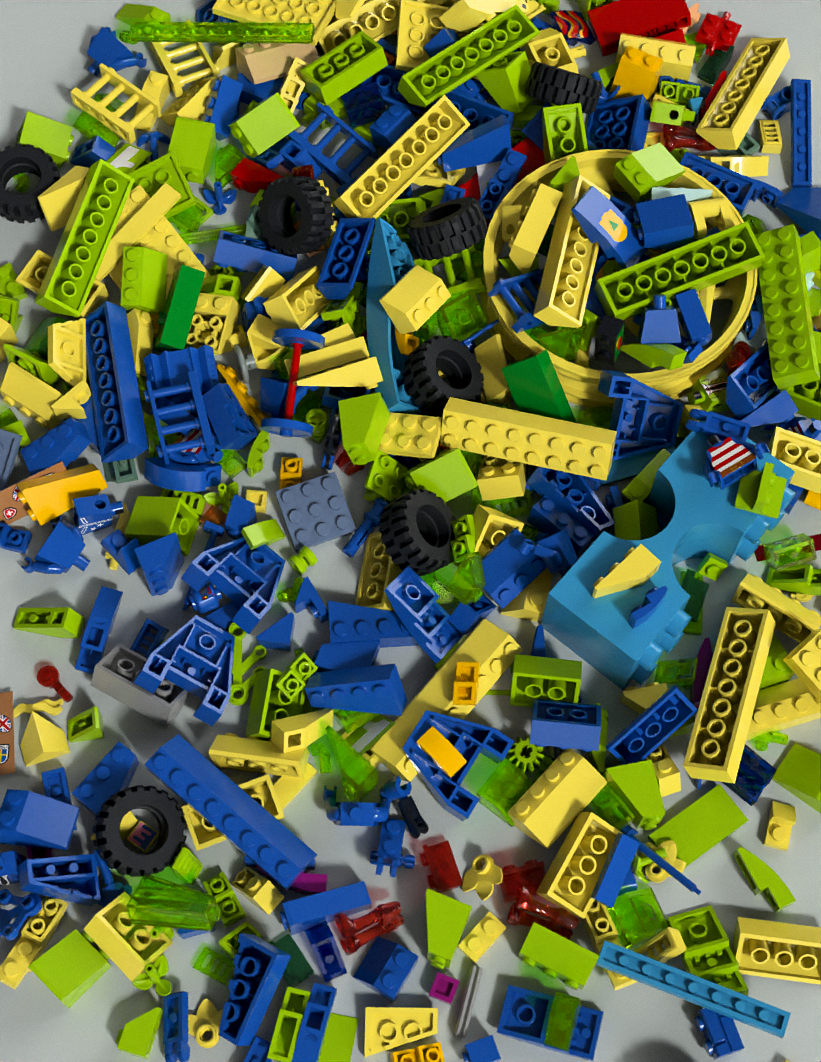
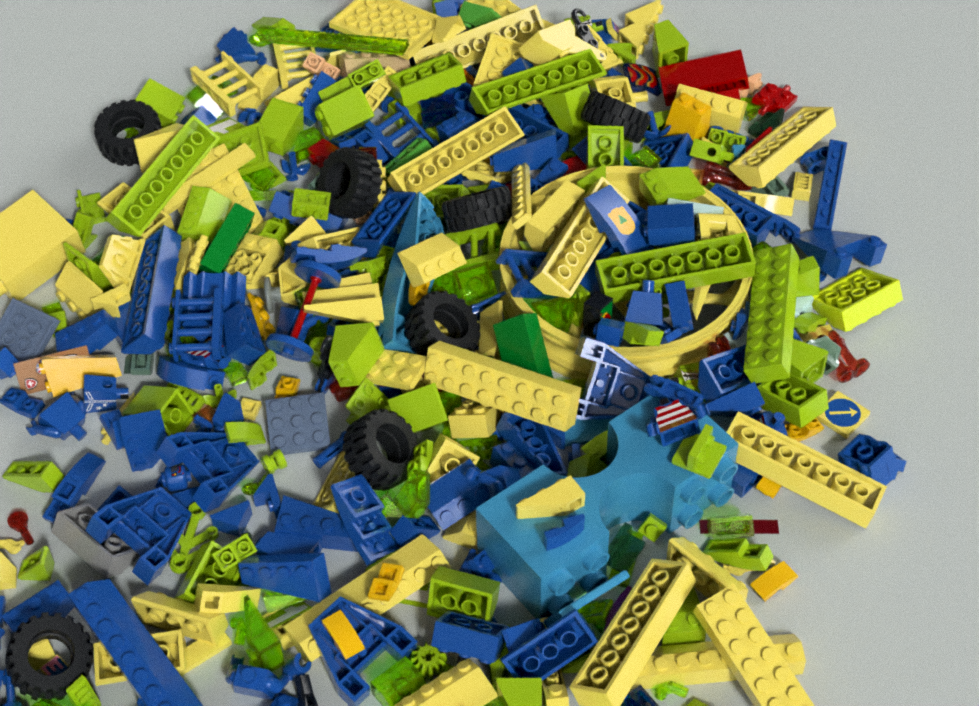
camera: 15 degrees right, 15 degrees down
(153, 325) = (200, 249): none -> light yellow plate
(215, 66) = (316, 64): none -> light nougat slope
(261, 85) = (364, 77): none -> lime slope
(261, 248) = (311, 203): none -> lime bracket
(305, 316) = (336, 256): none -> blue slope
(347, 169) = (411, 152): none -> bright green slope
(491, 205) = (521, 195): none -> light yellow plate
(553, 643) = (483, 567): none -> blue plate
(604, 134) = (645, 158): none -> clear neon green slope
(619, 712) = (521, 633): none -> blue slope
(628, 359) = (609, 331): none -> blue brick
(673, 664) = (582, 601): none -> dark azure tile

